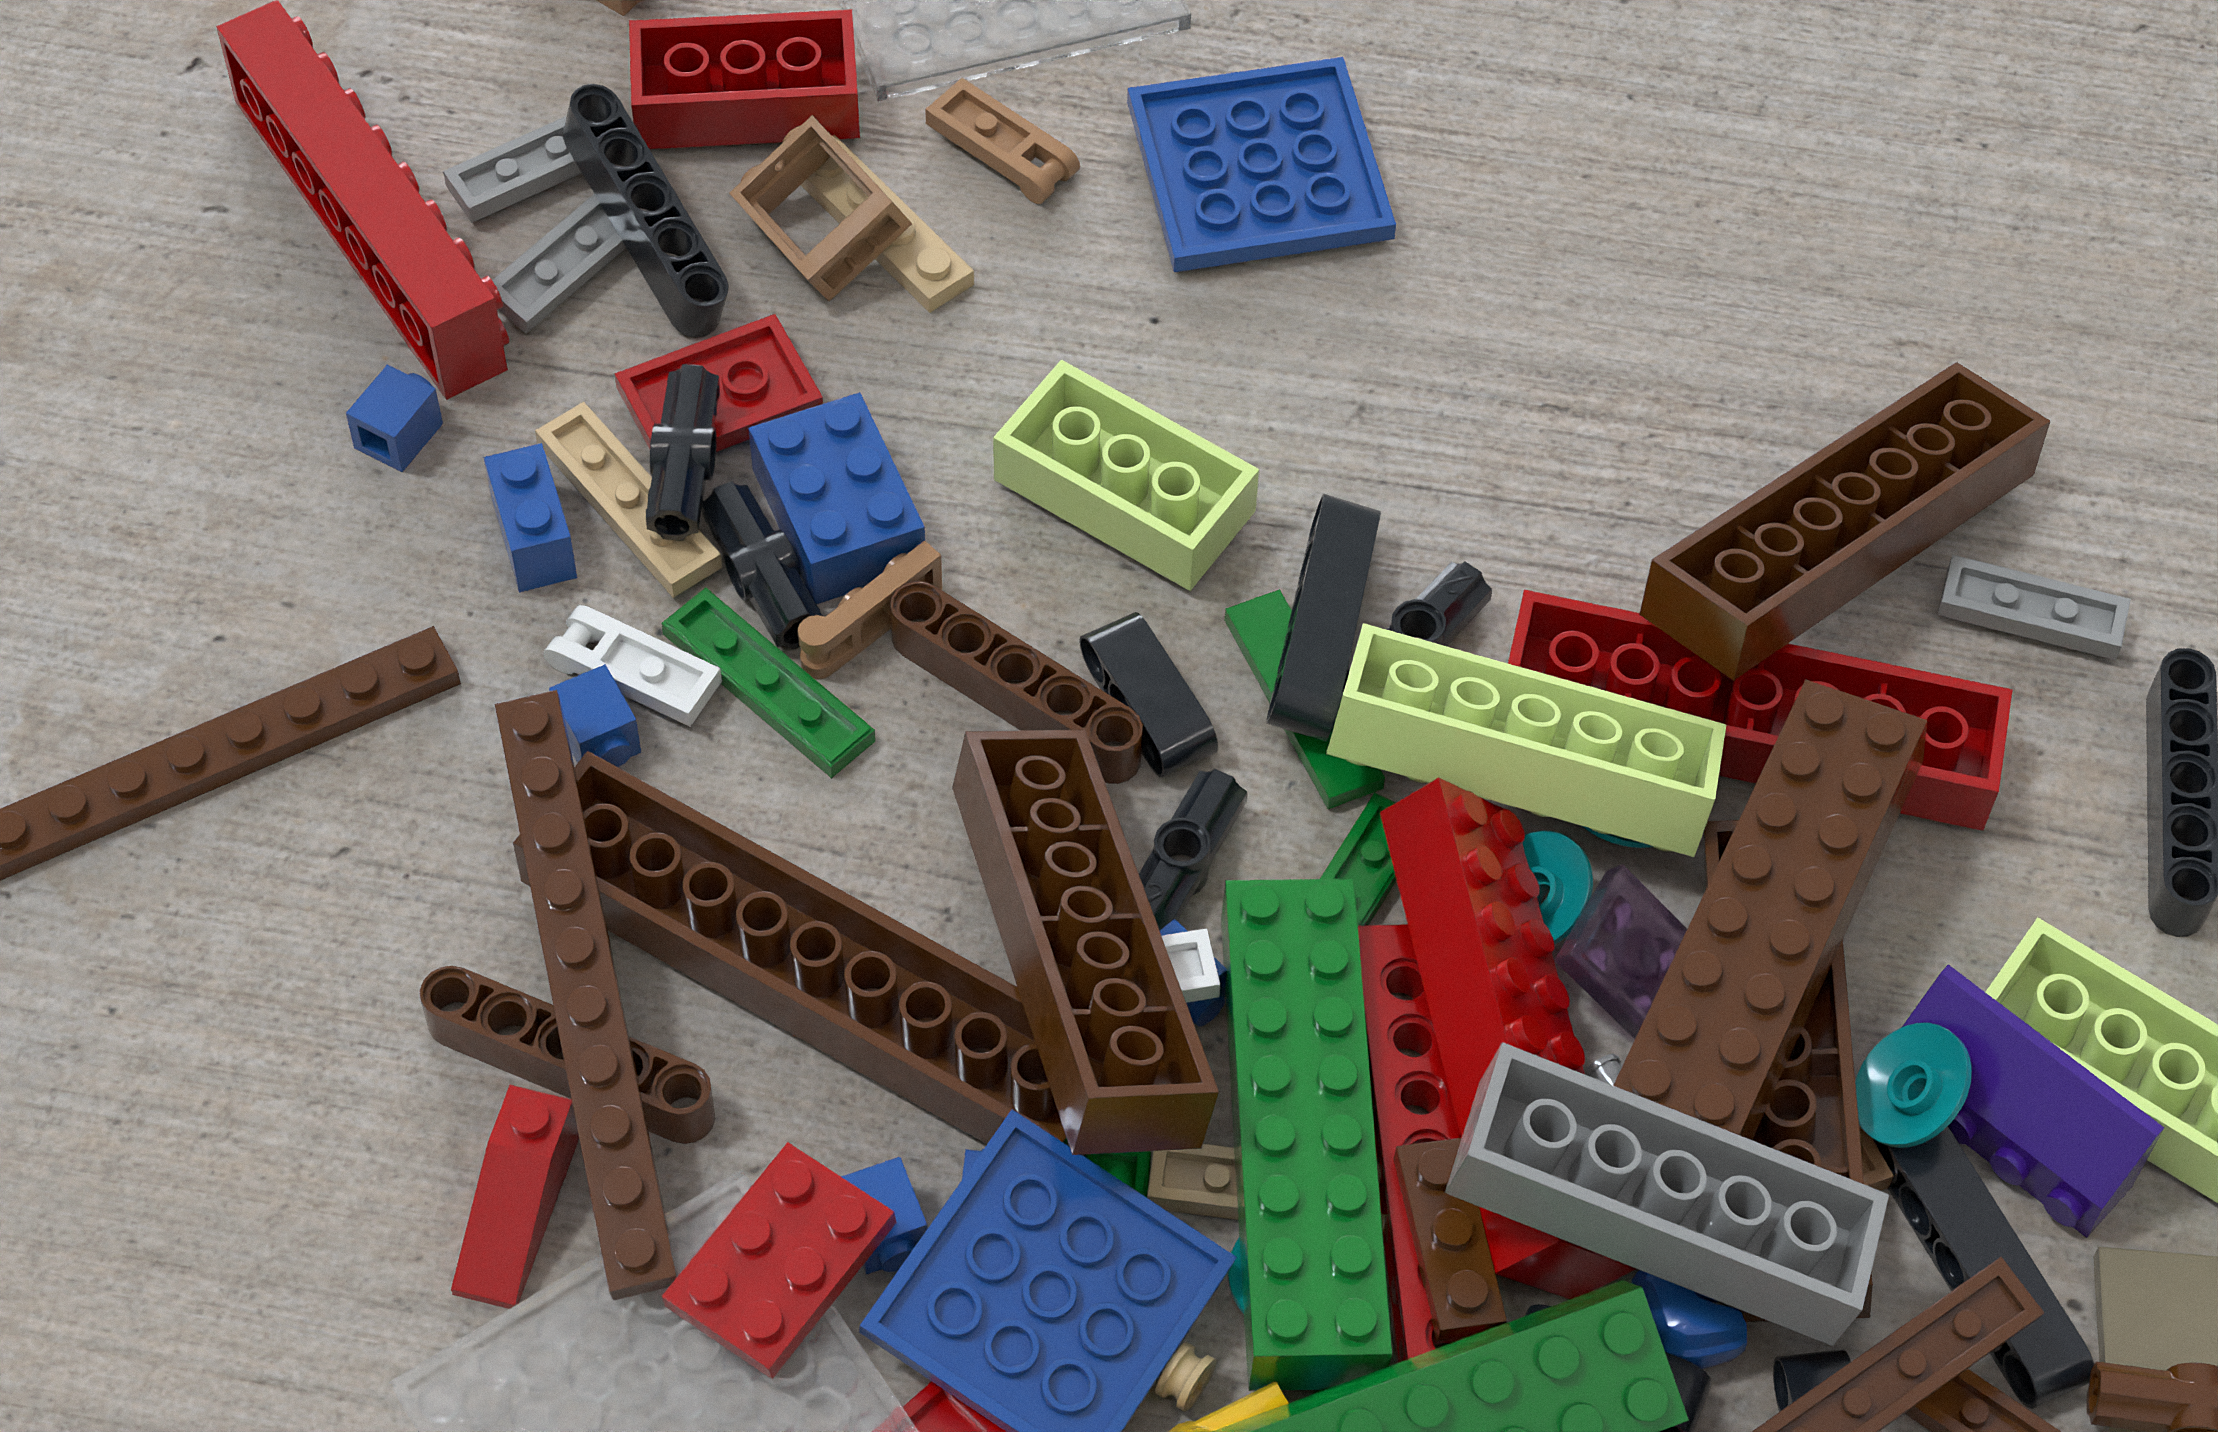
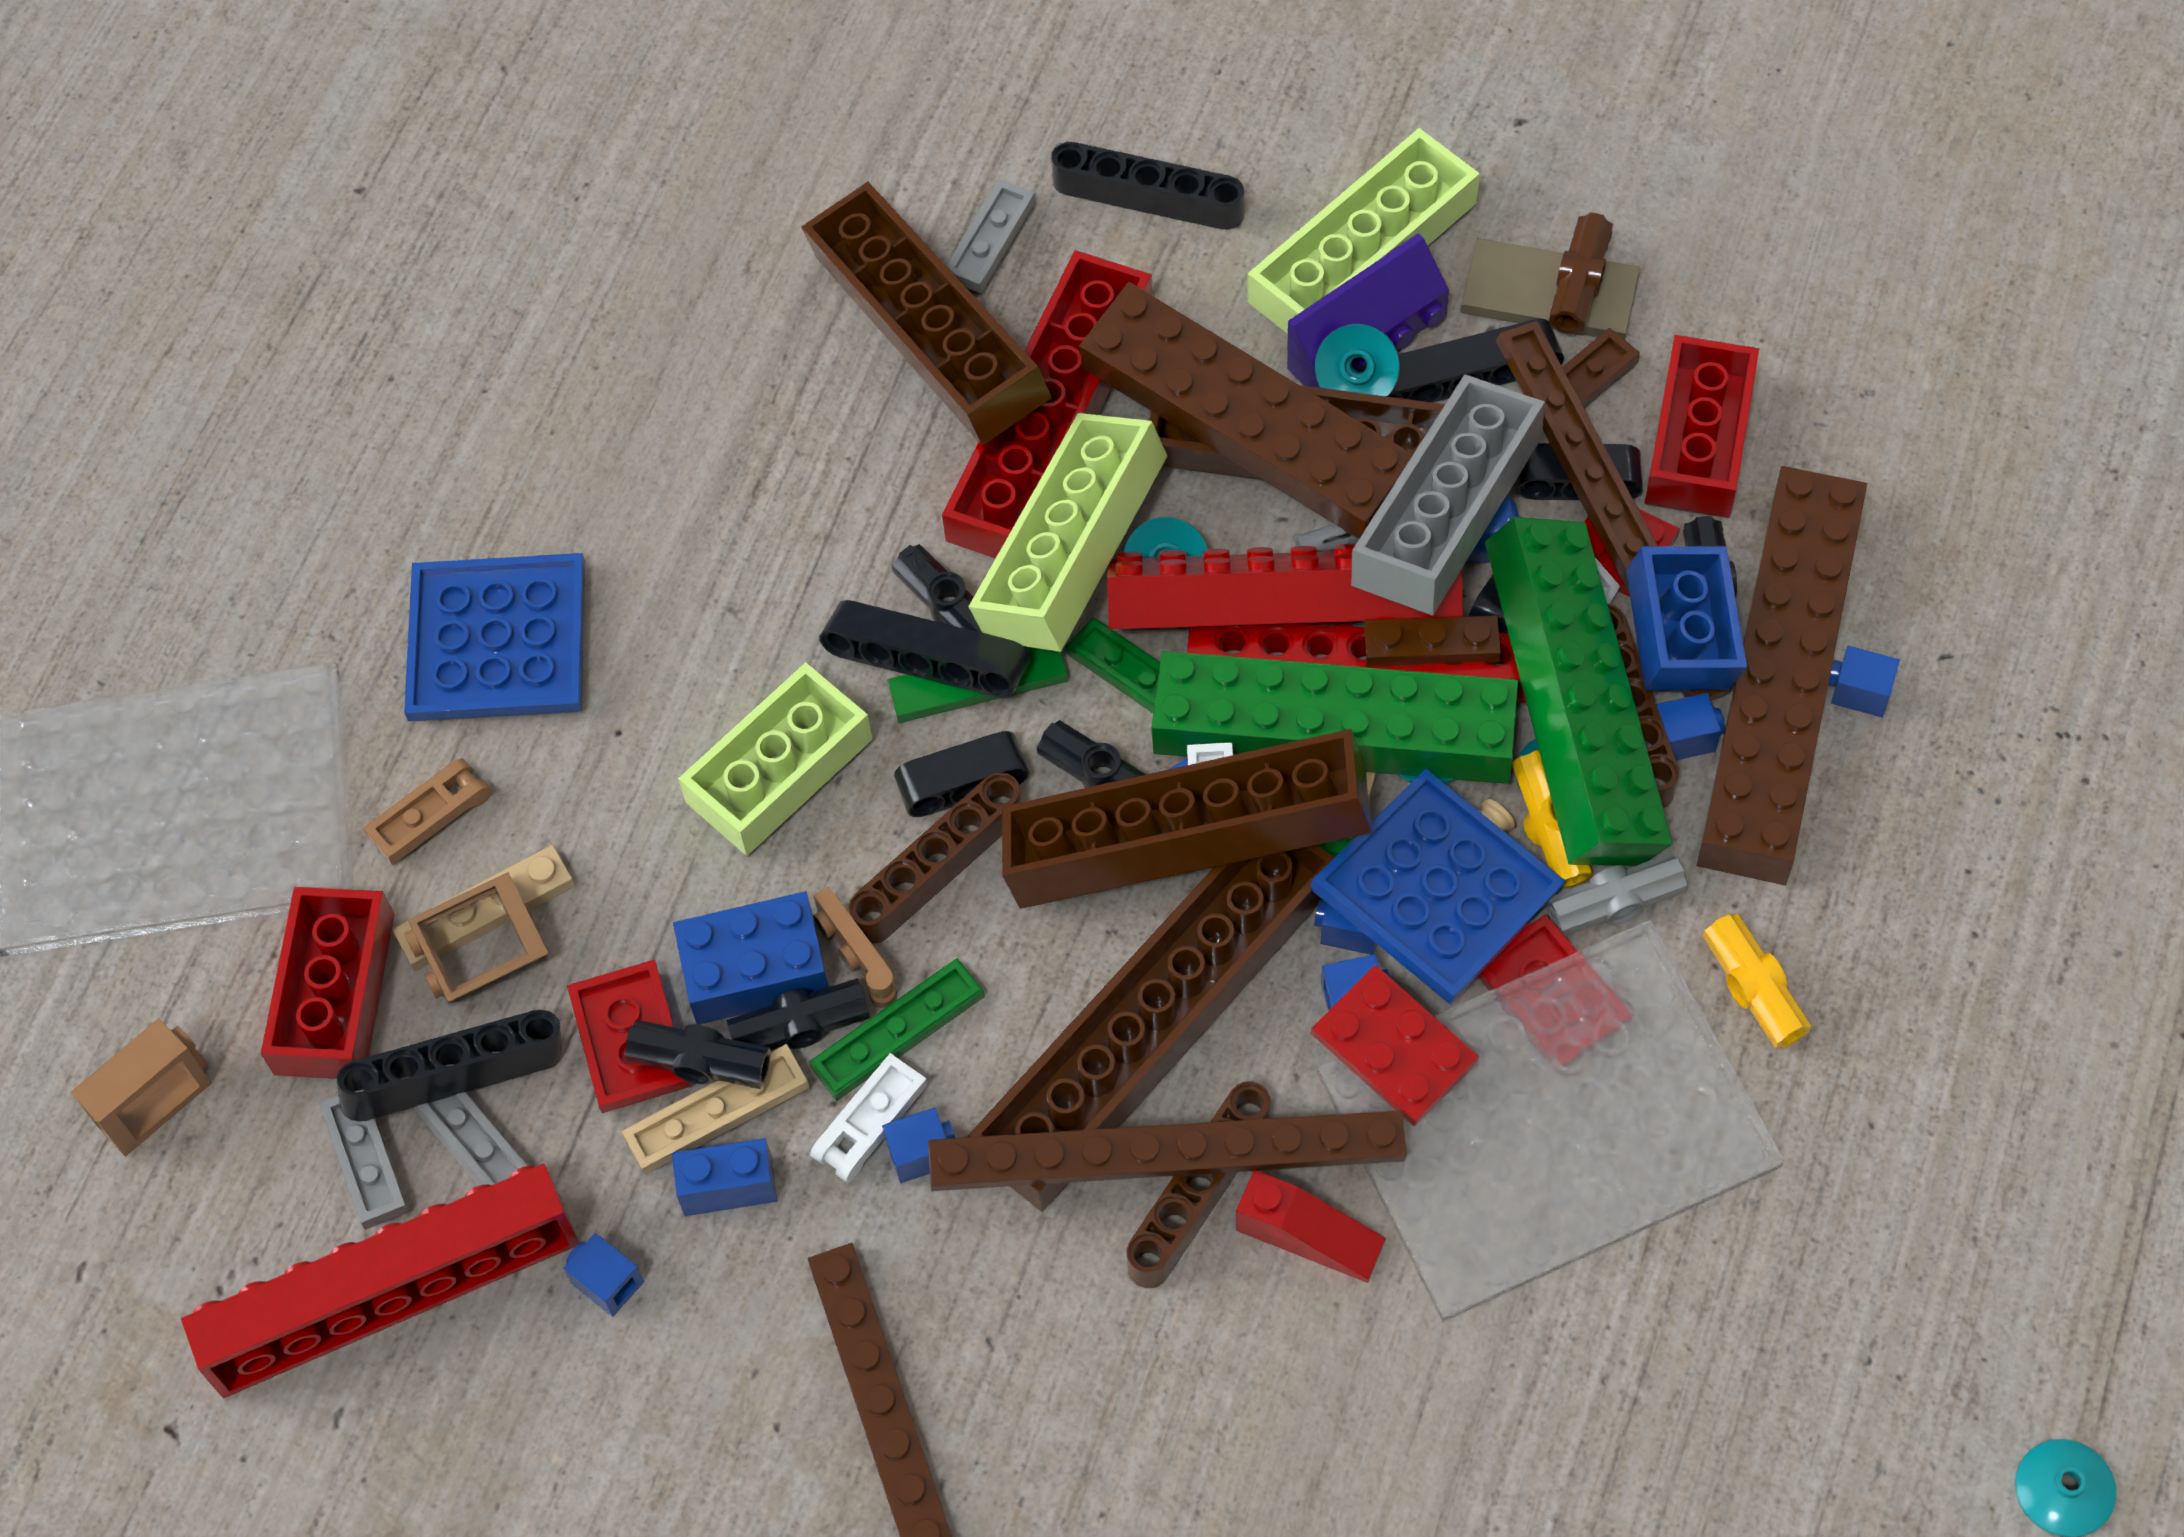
camera: 75 degrees left, 5 degrees up
(1622, 947) = (1227, 510): clear purple plate -> none

